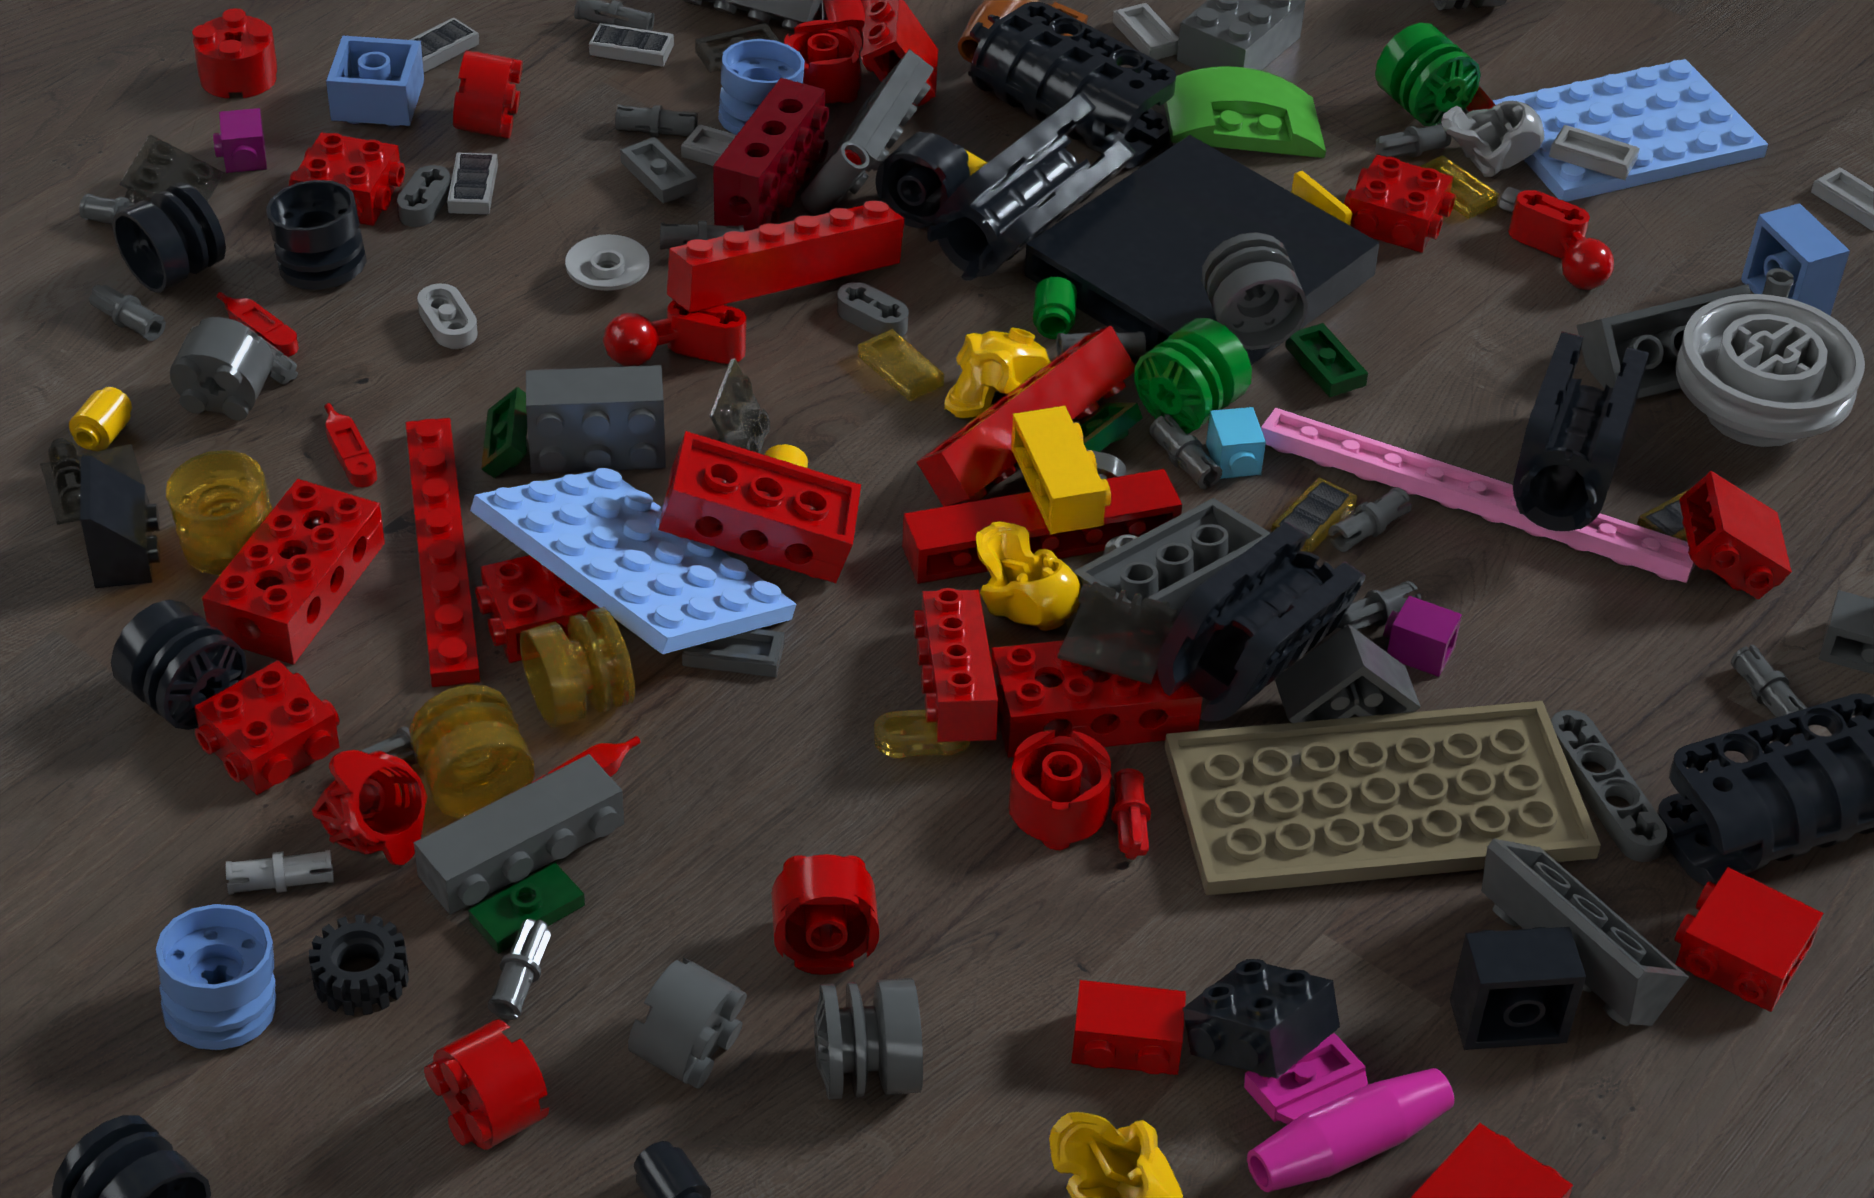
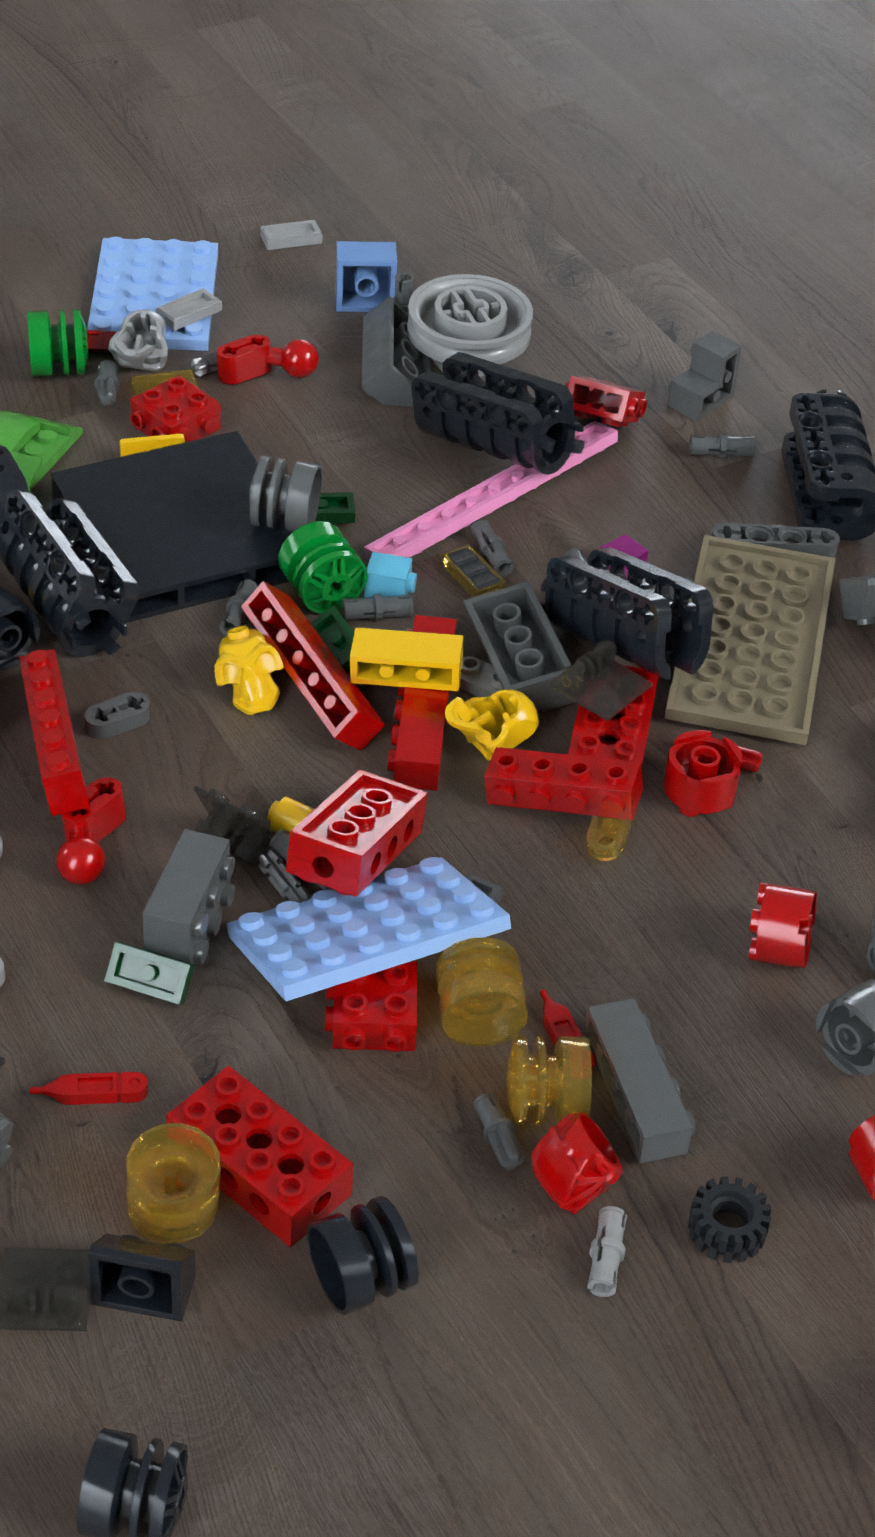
camera: 70 degrees left, 0 degrees up
(216, 976) = (738, 1304): medium blue wheel -> none
(267, 727) = (448, 1217): red brick -> none
(442, 554) = (262, 1056): red plate -> none
(519, 969) = (764, 1120): dark grey axle -> none
(543, 896) = (701, 1099): dark green plate -> none
(901, 365) = (191, 721): clear yellow tile -> none
(1054, 306) = (184, 615): green brick -> none

